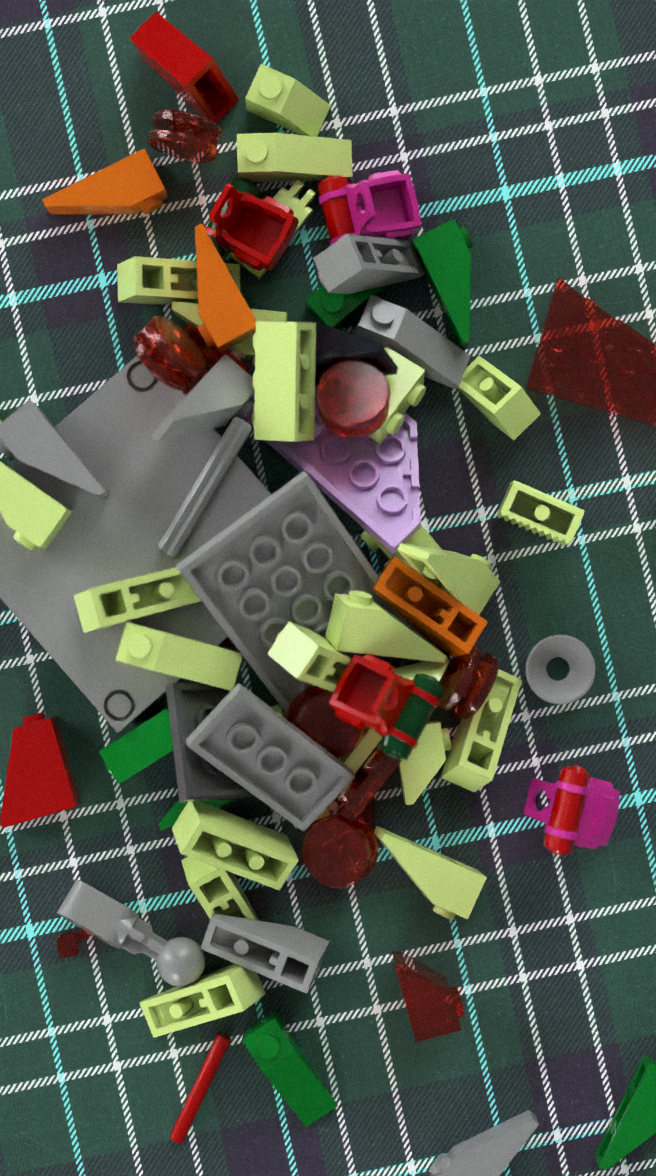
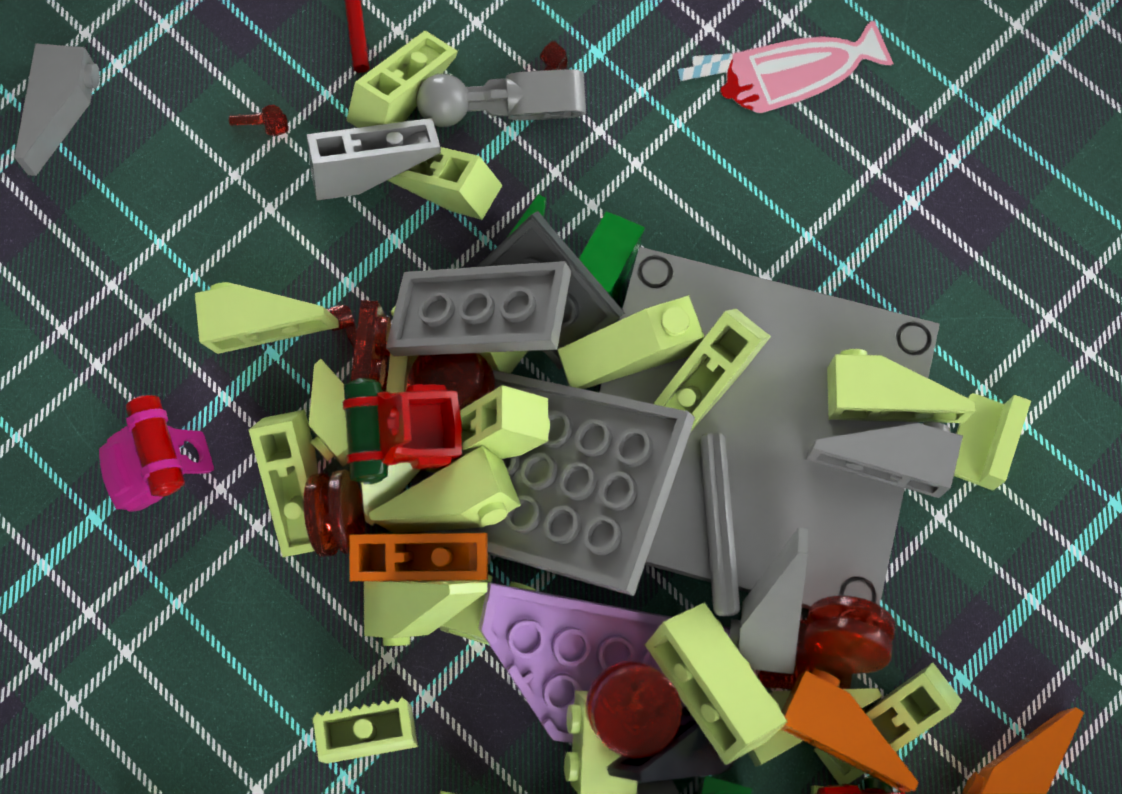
camera: 145 degrees right, 15 degrees down
(37, 773) = (685, 179): red slope -> none
(234, 844) = (459, 220): yellowish green brick -> none
(288, 1068) = (288, 75): green slope -> none
(319, 1036) = (271, 116): none -> clear red hand
(340, 851) = (355, 274): clear red head -> none
(428, 998) = (190, 201): clear red slope -> none
(579, 675) = (230, 574): light grey piece -> none

